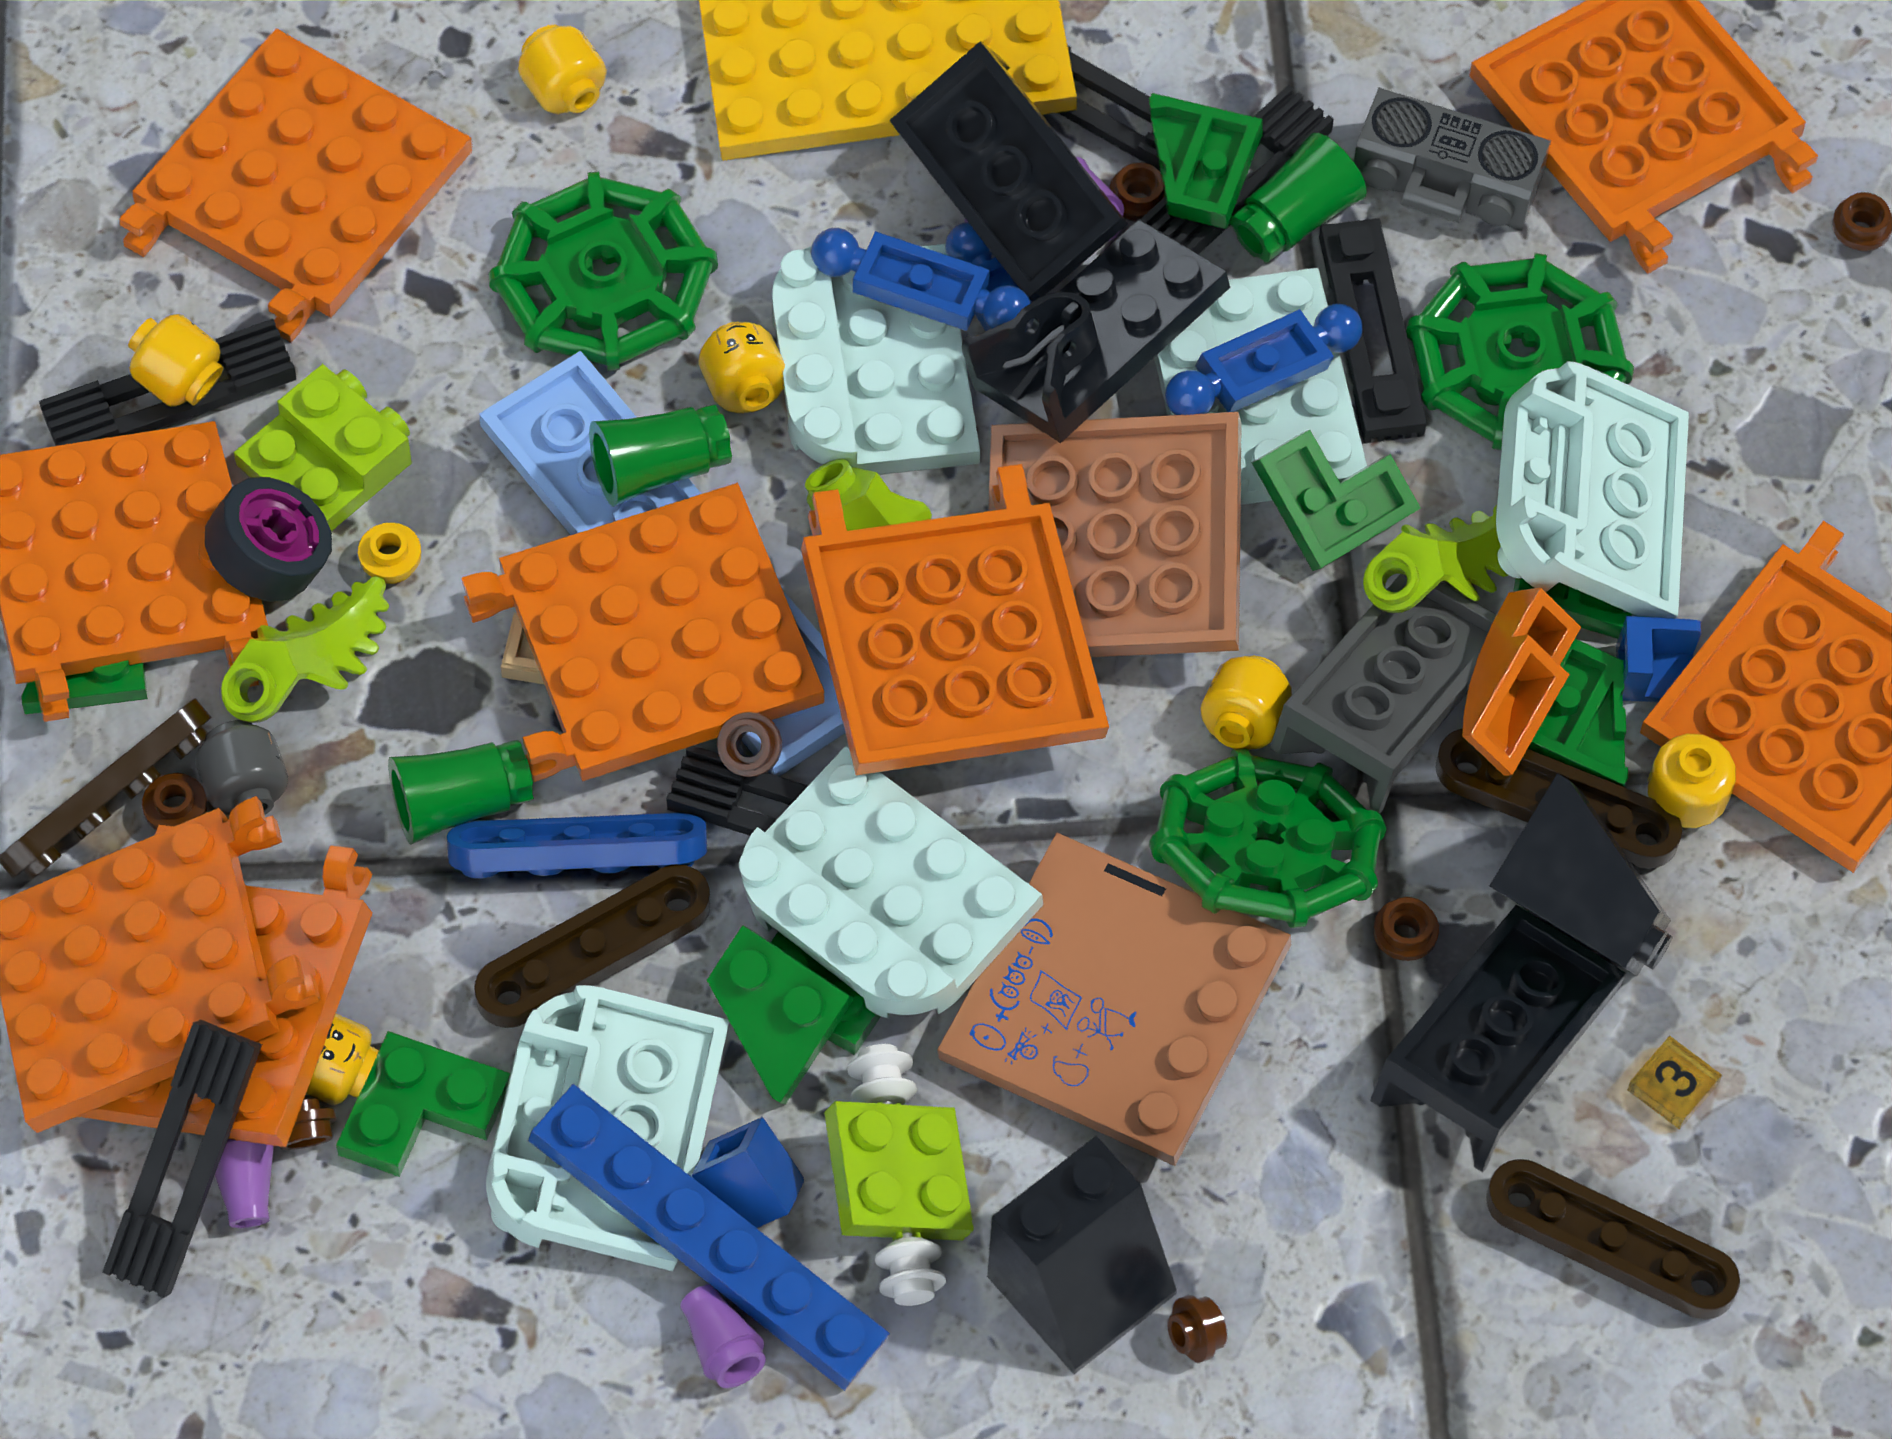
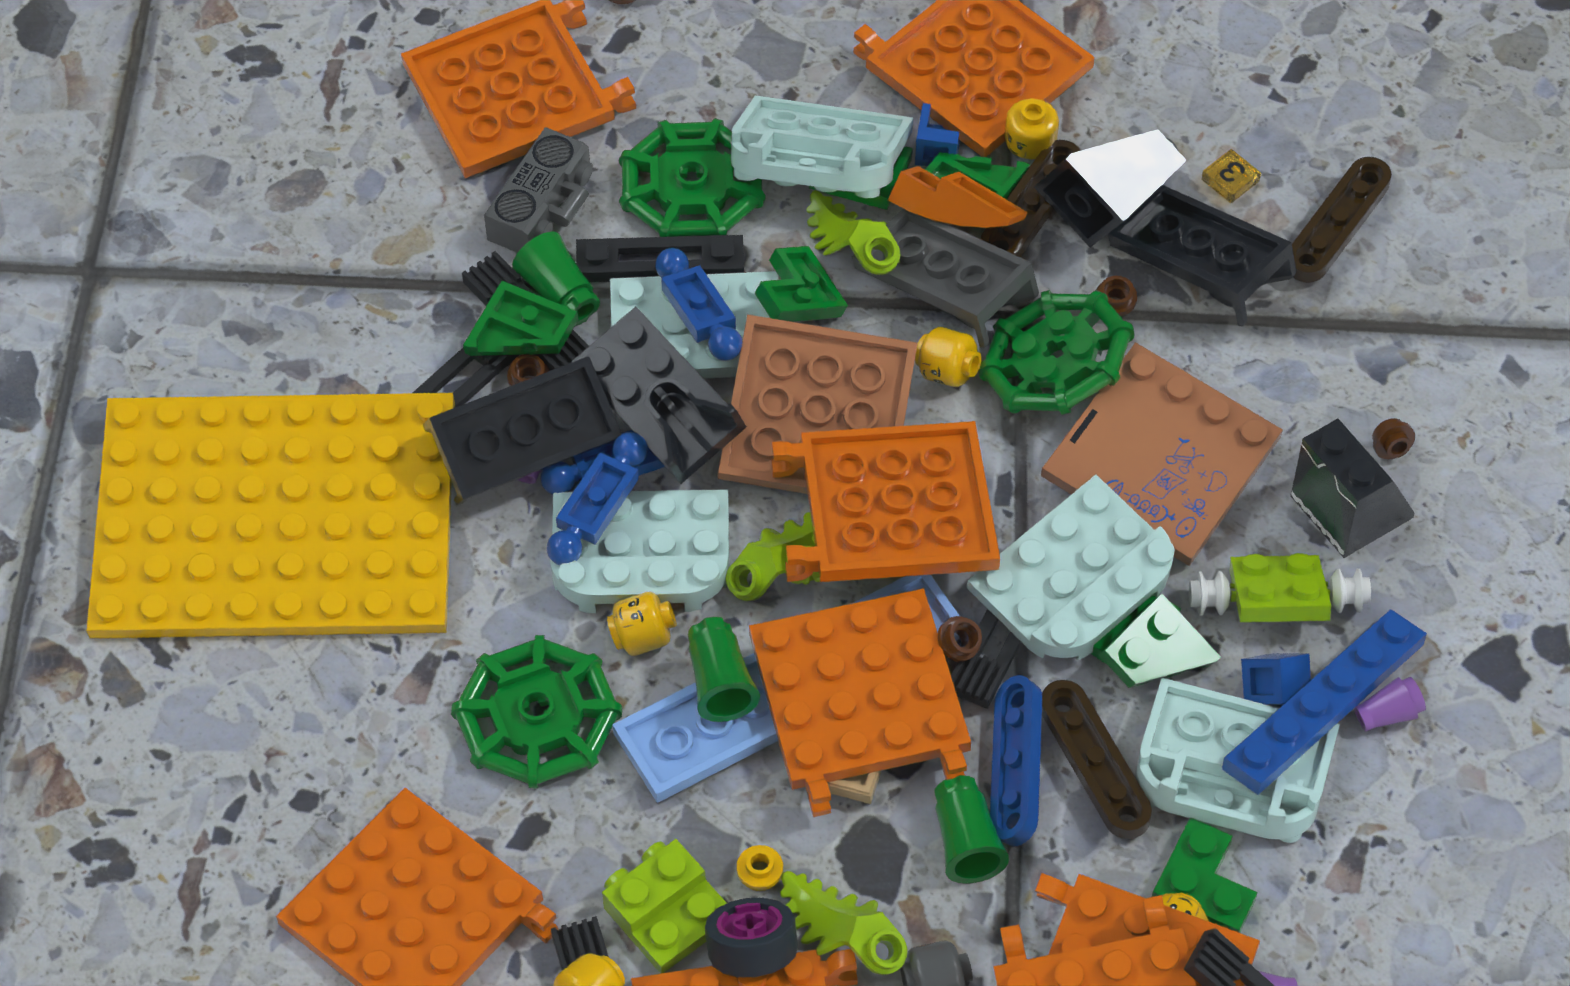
camera: 80 degrees left, 5 degrees down
(560, 68) = (356, 720): yellow head -> none

